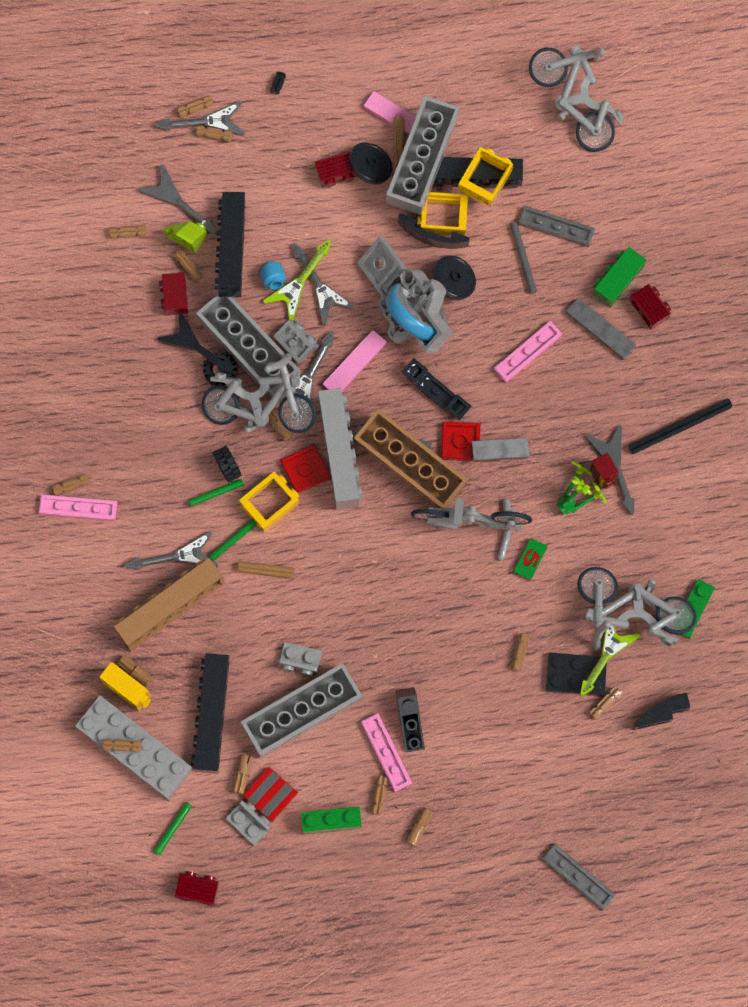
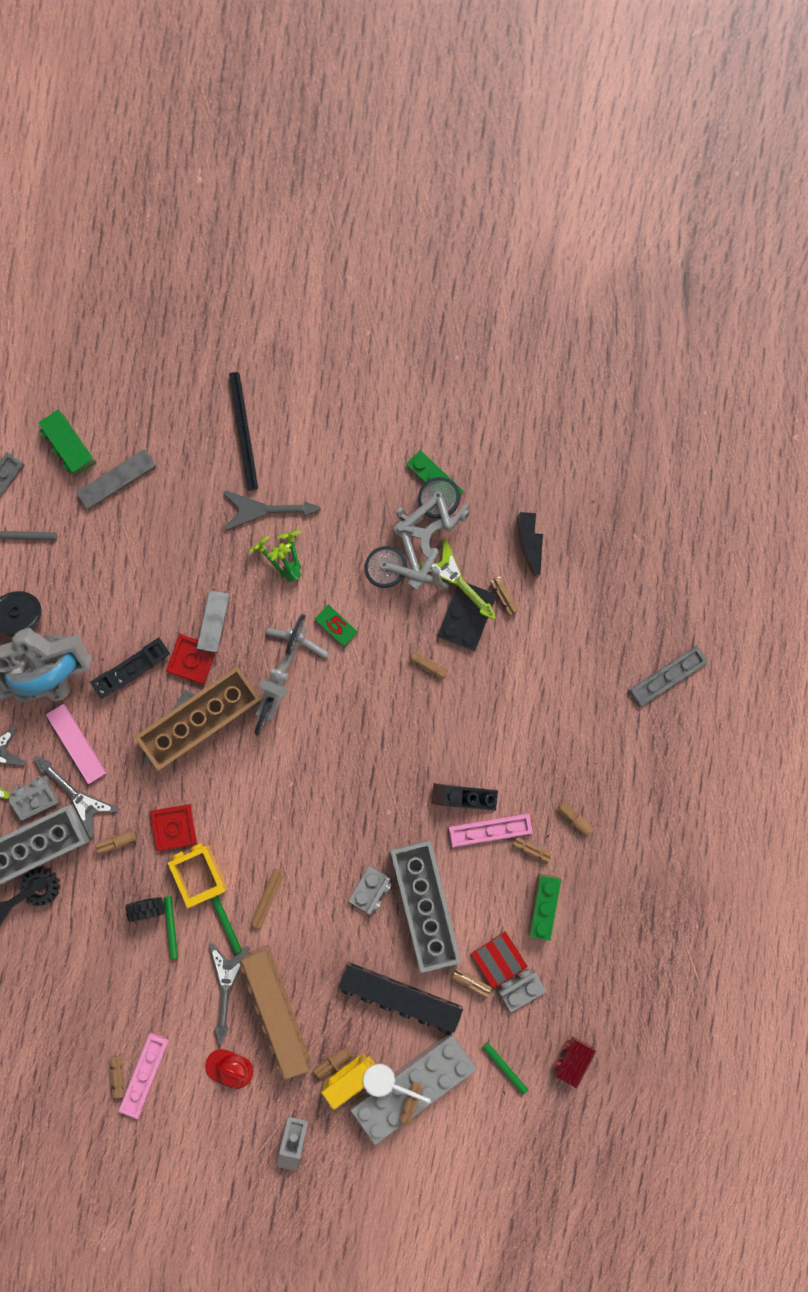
camera: 80 degrees left, 10 degrees up
(53, 654) = (292, 1144): none -> light grey slope
(104, 581) = (229, 1068): none -> red piece
(135, 710) = (380, 1081): none -> white piece
(294, 411) = (110, 825): piece -> none
(338, 443) = (164, 789): light grey brick -> none
(527, 351) = (118, 561): bright pink tile -> none
(604, 471) = (269, 523): dark red brick -> none
(650, 306) = (108, 421): dark red brick -> none

